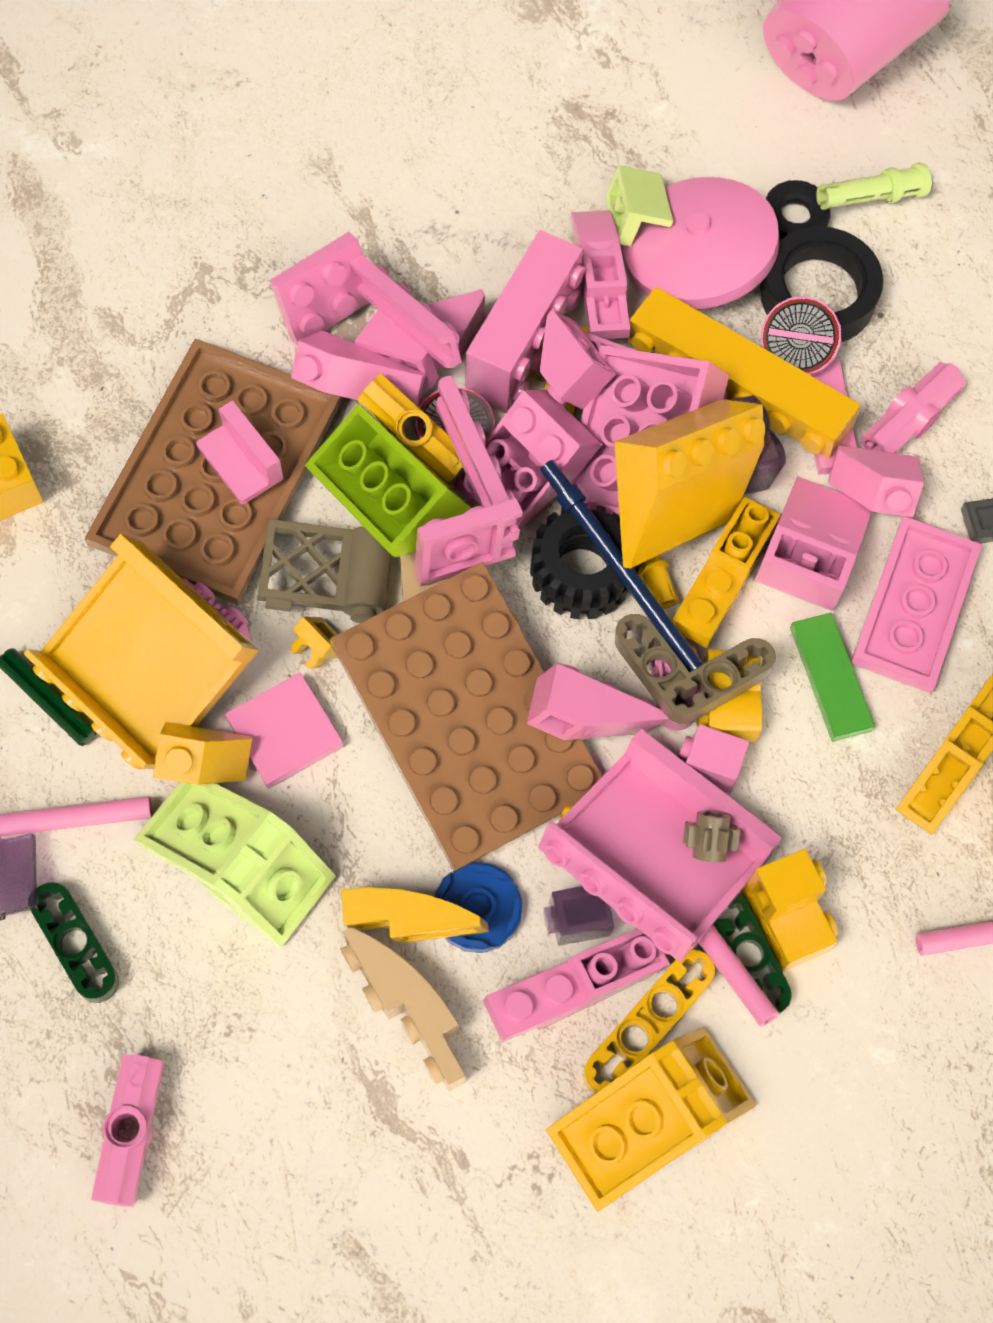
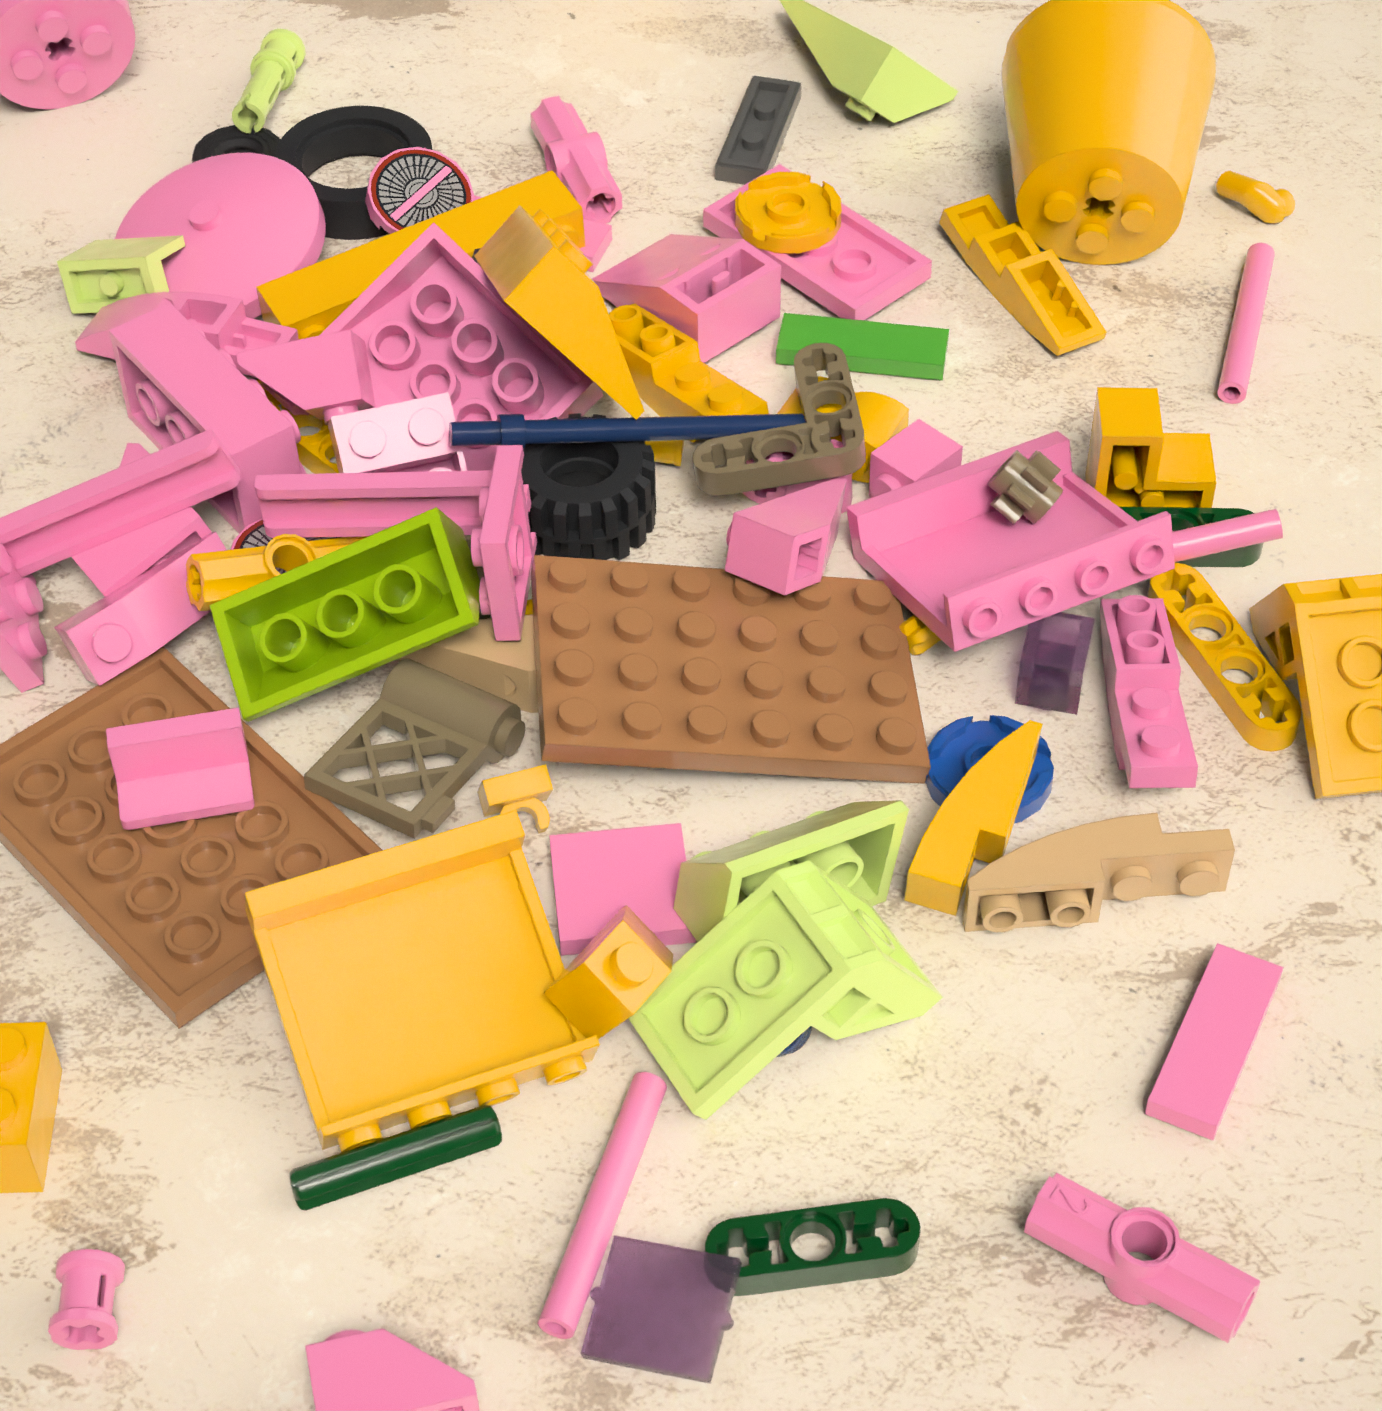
camera: 60 degrees left, 20 degrees down
(317, 815) = (849, 842): none -> yellowish green slope
(317, 1123) = (1214, 1041): none -> bright pink tile
(878, 479) = (647, 208): bright pink slope -> none
(925, 572) = (788, 213): none -> yellow tile

